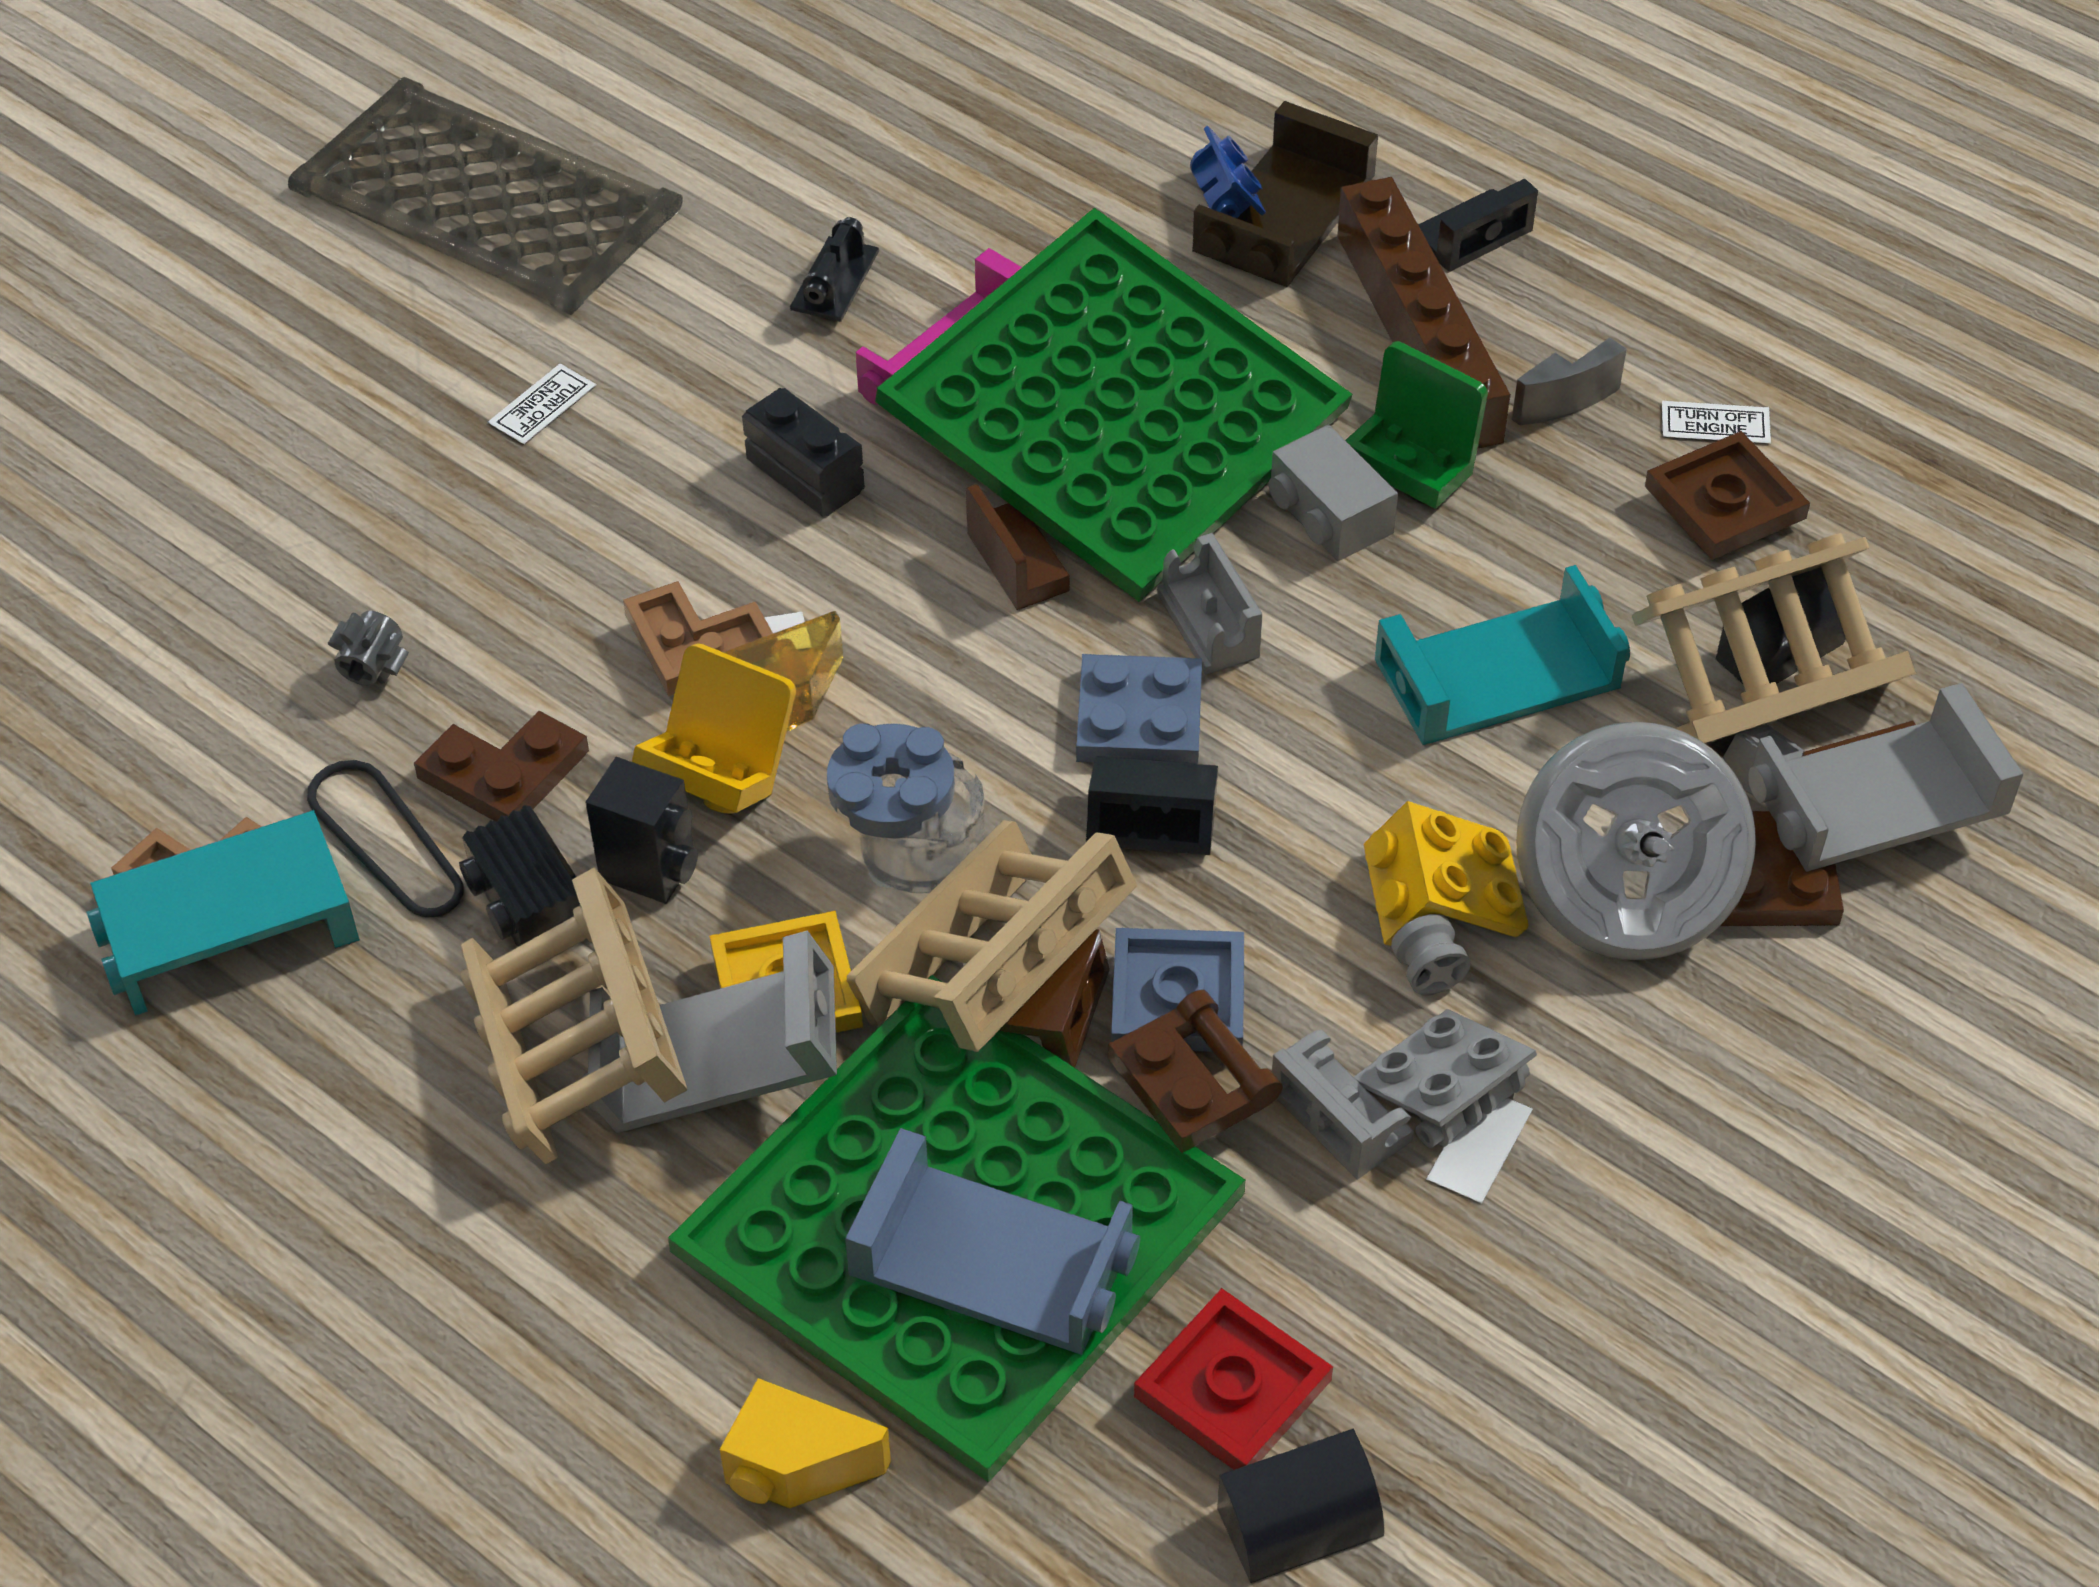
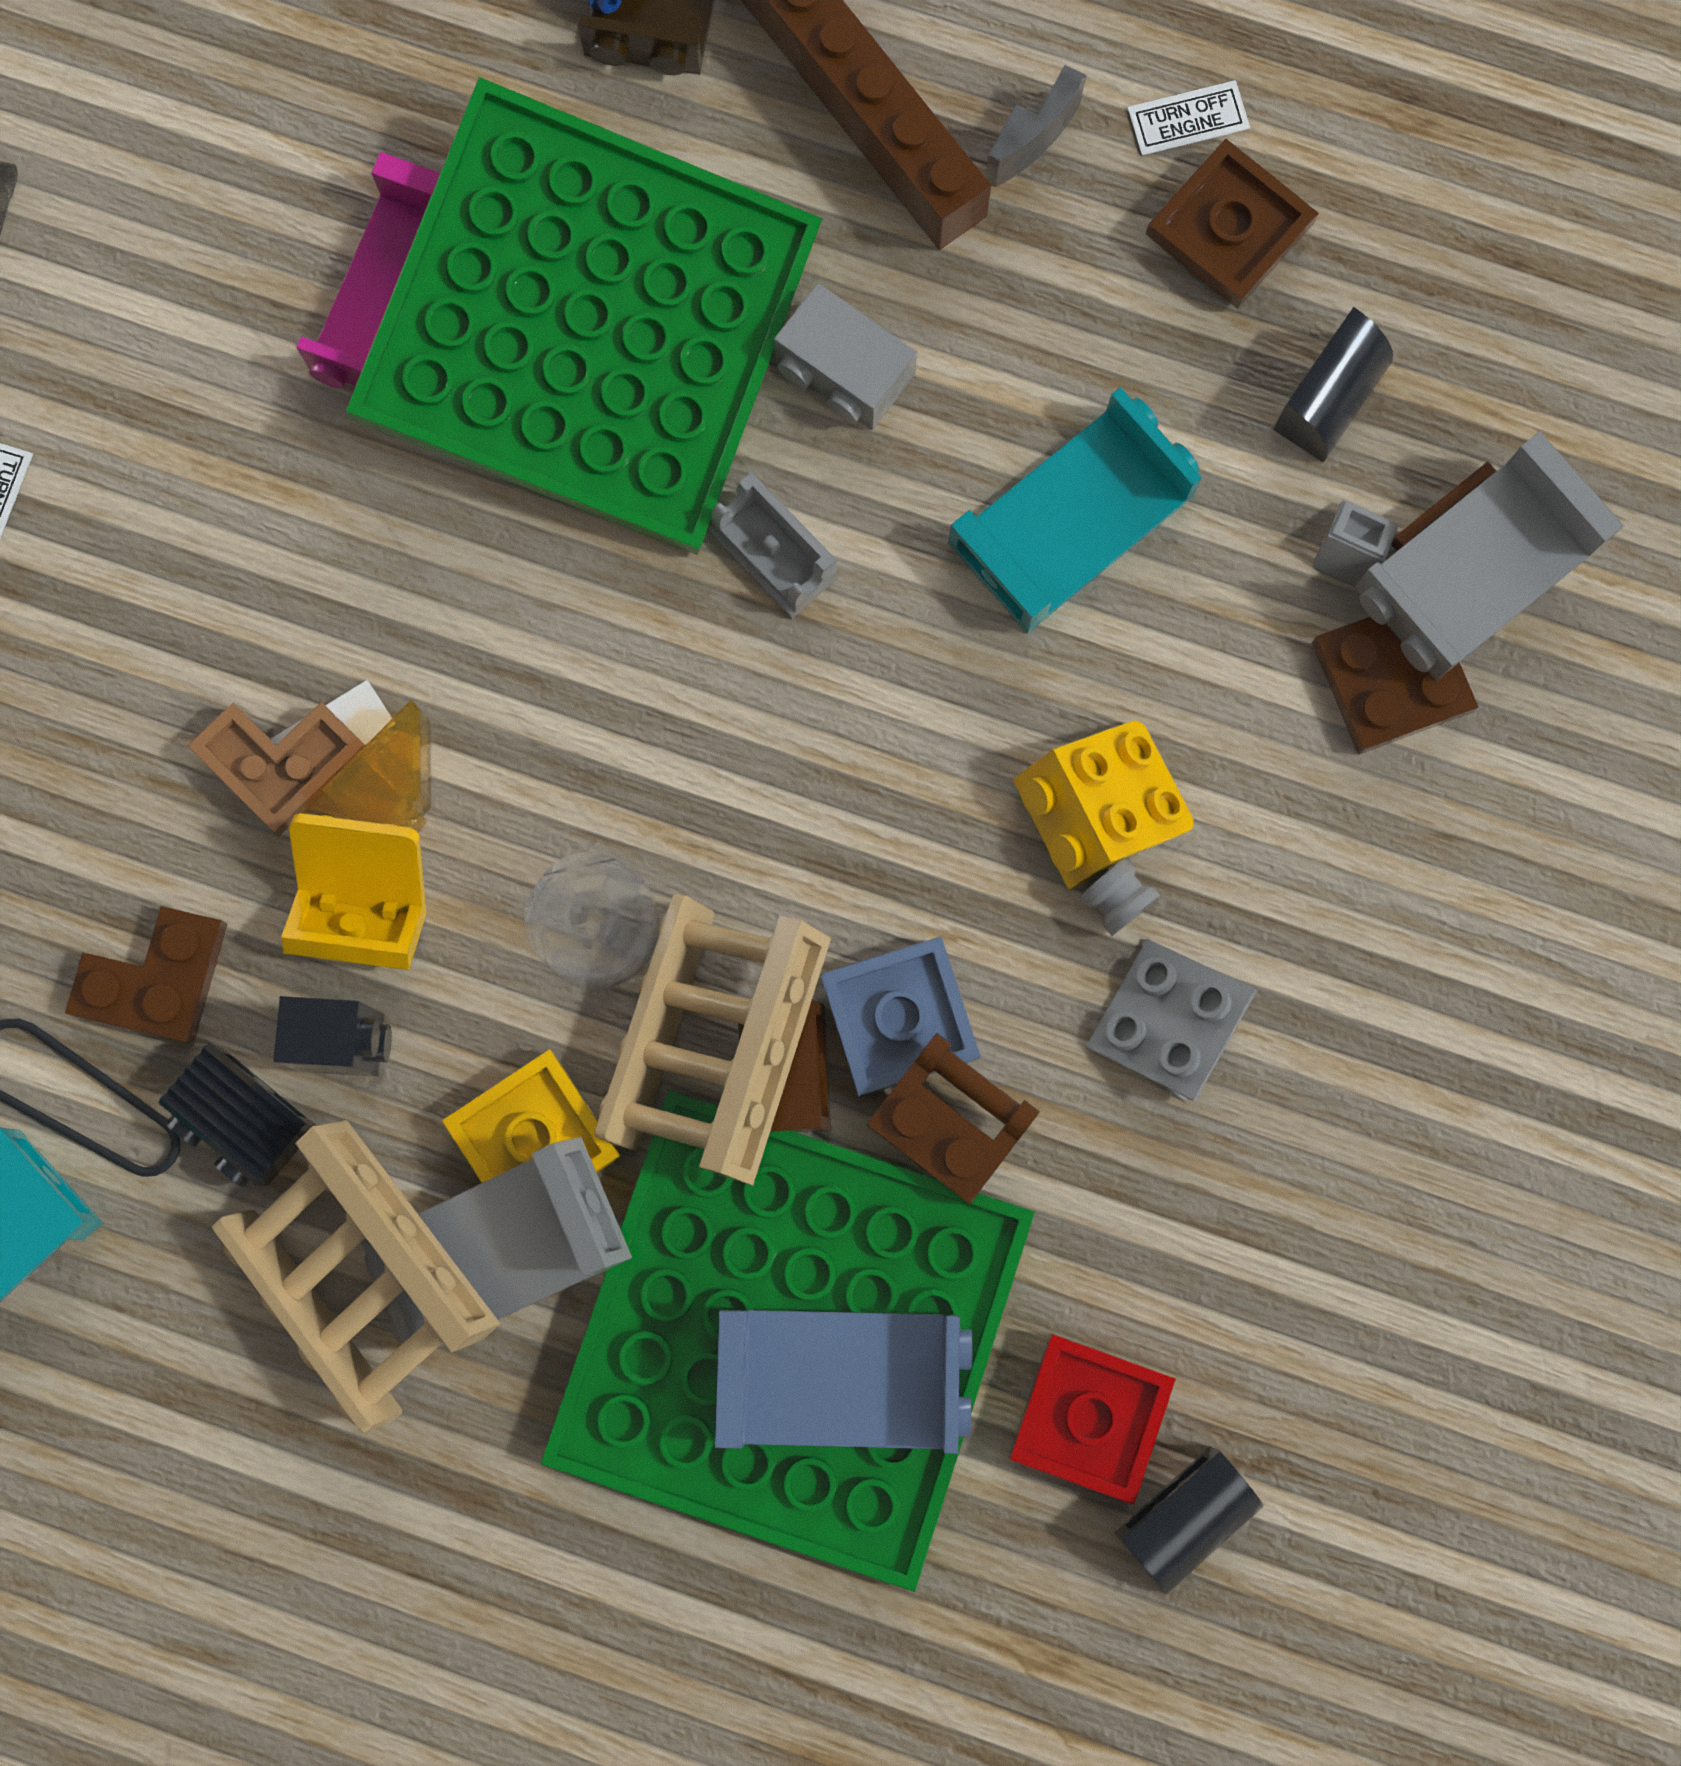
camera: 20 degrees left, 30 degrees up
(799, 1448) = (738, 1630): yellow slope -> none
(803, 451) = (291, 488): black brick -> none
(836, 272) = (225, 224): black hinge -> none
(883, 750) = (523, 893): sand blue plate -> none
(1014, 551) = (555, 538): reddish brown panel -> none
(1139, 708) = (745, 691): sand blue plate -> none
(1153, 804) = (801, 809): black brick -> none
(1338, 1106) = (1090, 1090): light grey hinge -> none
(1422, 425) = (909, 256): green bracket -> none
(1479, 1151) = (1224, 1096): white sticker -> none
(1690, 874) = (1263, 679): flat silver wheel -> none
(1814, 682) = (1387, 450): tan fence -> none

